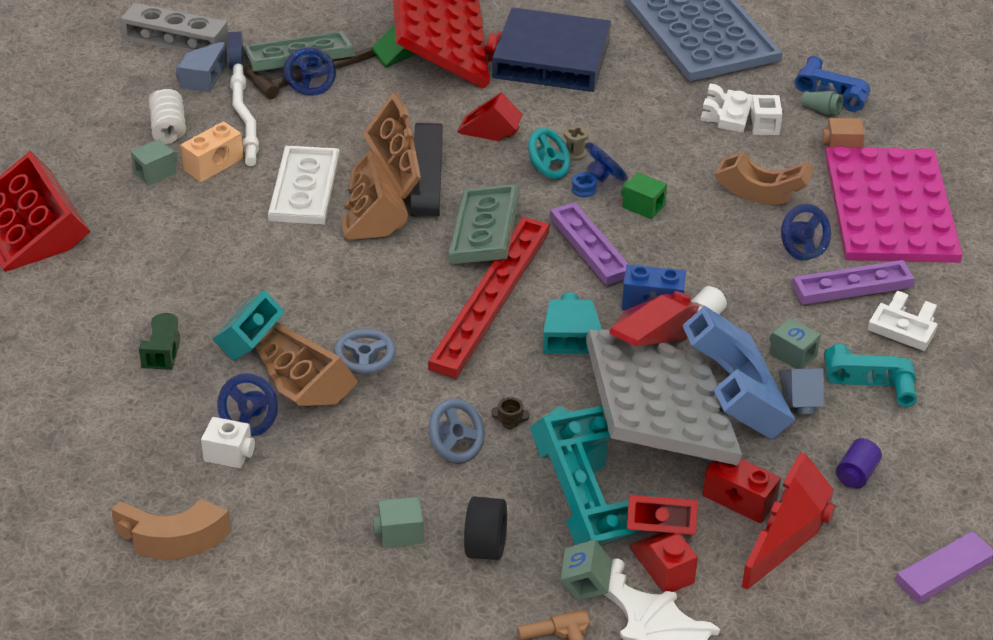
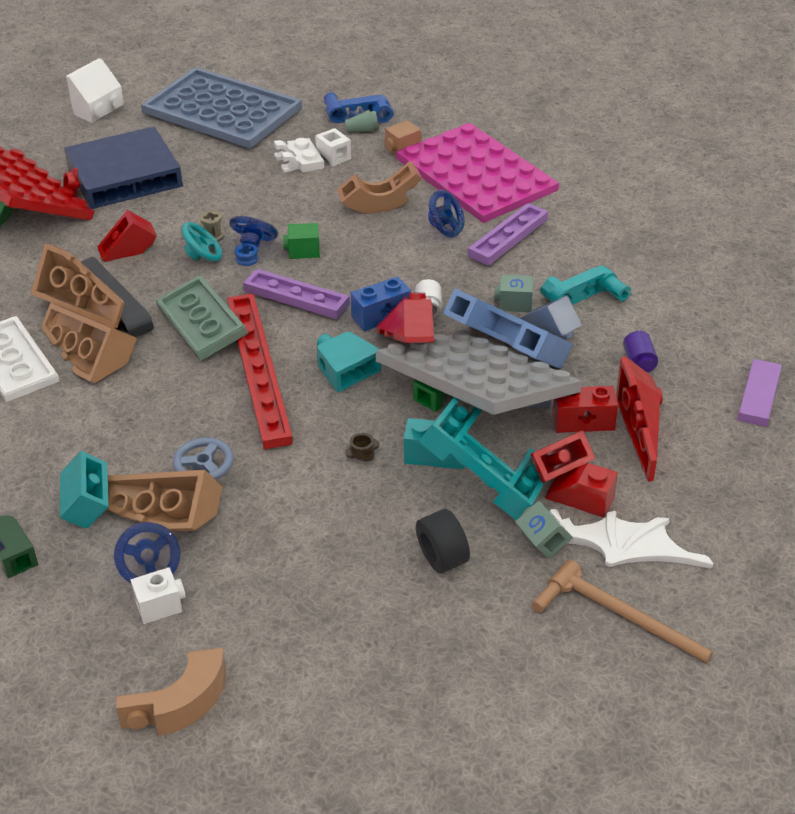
camera: 35 degrees left, 0 degrees up
(399, 522) = (366, 576): sand green brick -> none
(449, 432) = (336, 484): sand blue piece -> none
(902, 326) = (573, 247): white plate -> none

